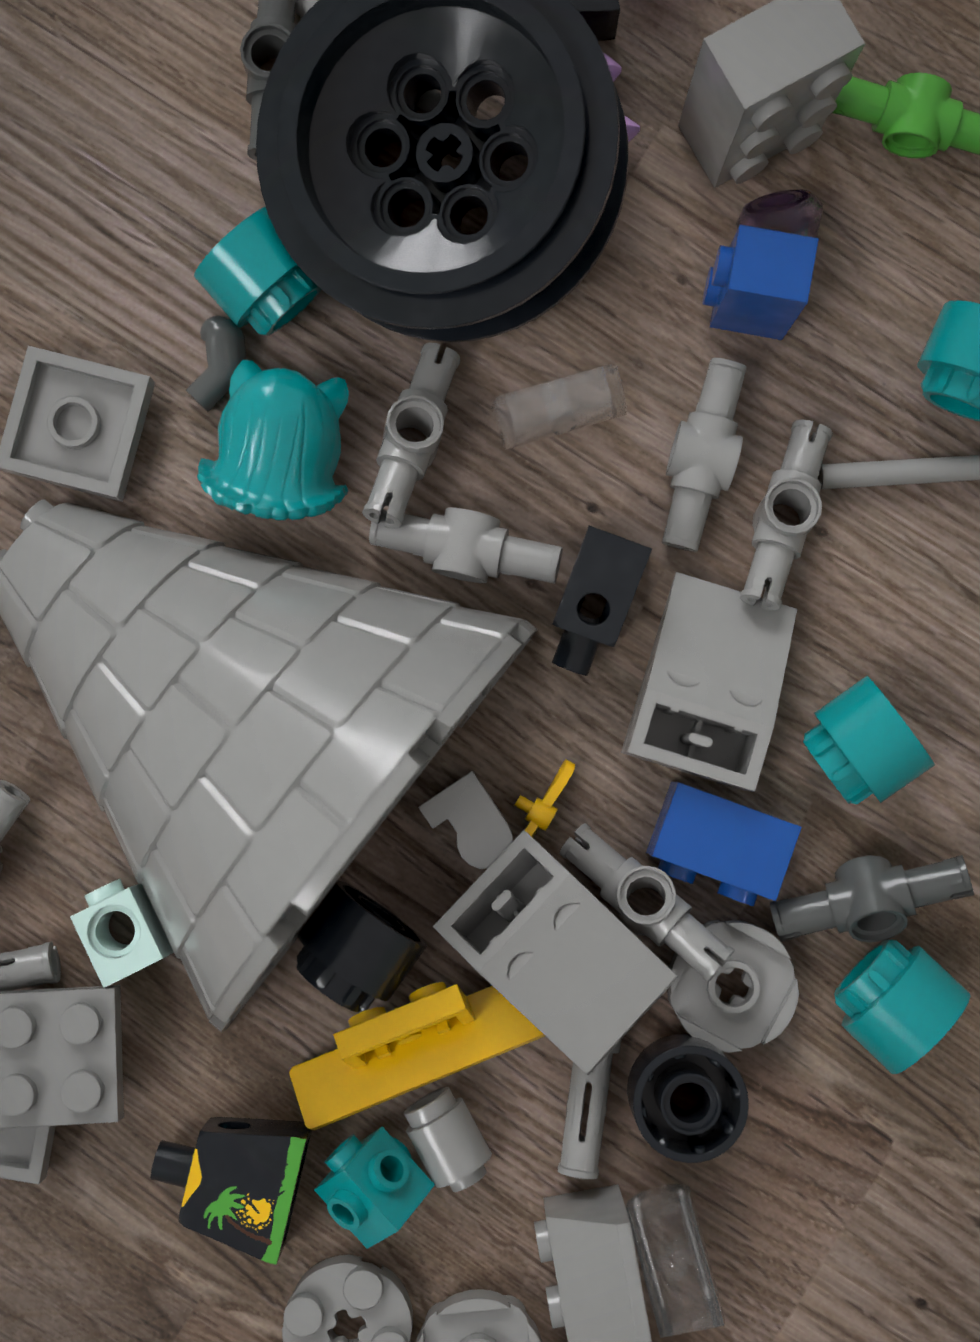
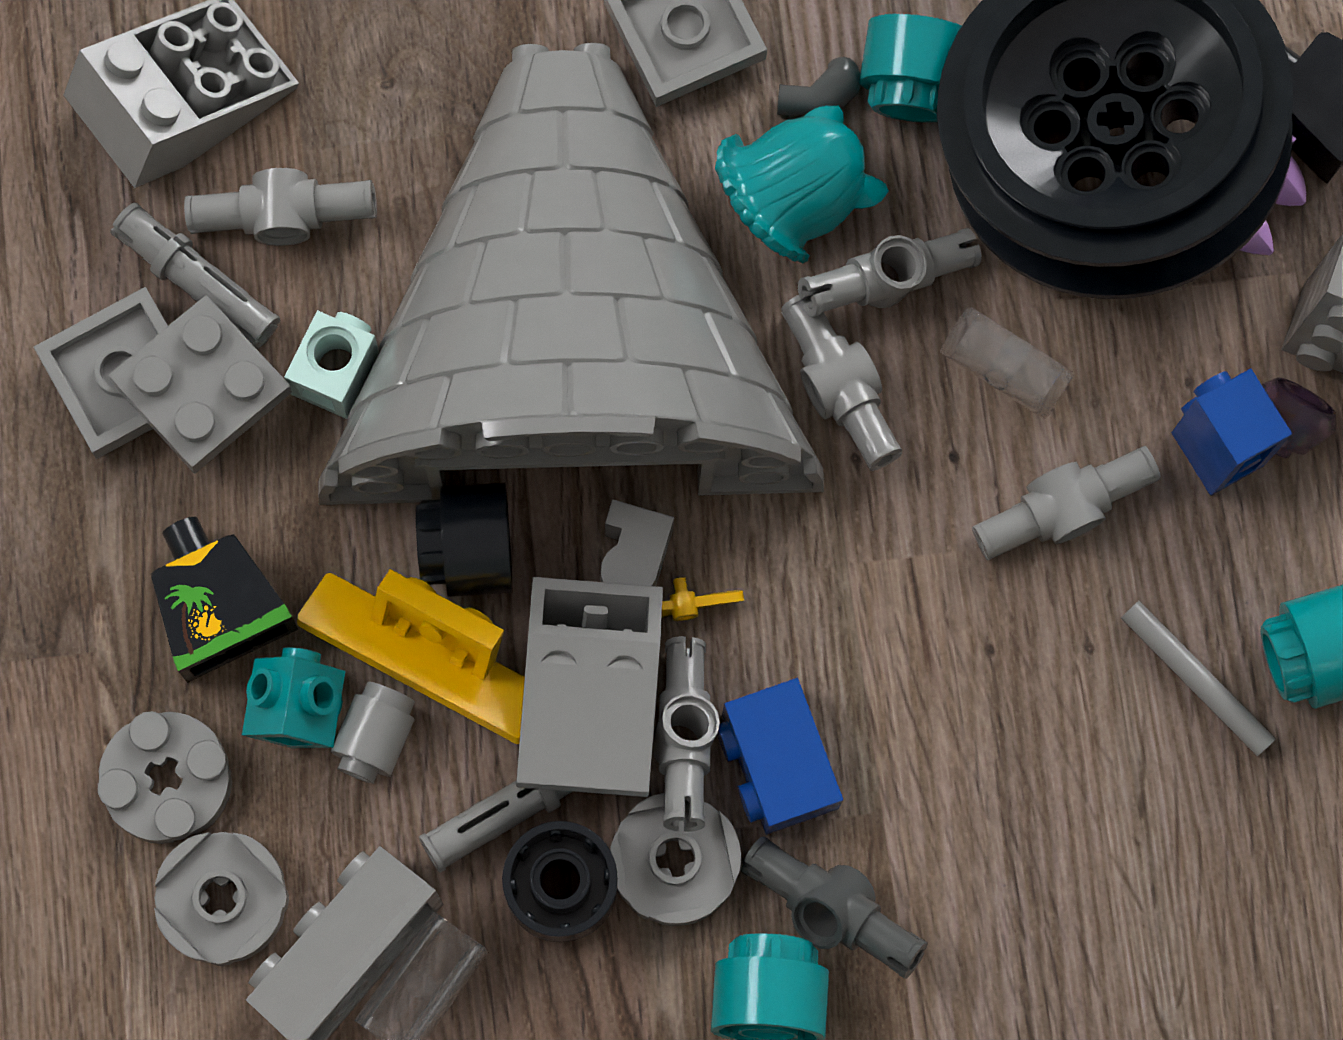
camera: 45 degrees right, 10 degrees down
(604, 567) = (915, 496): black torso -> none
(711, 684) = (894, 647): light grey slope -> none
(781, 543) = (1050, 615): light grey pin -> none
(866, 744) = (949, 803): teal piece -> none

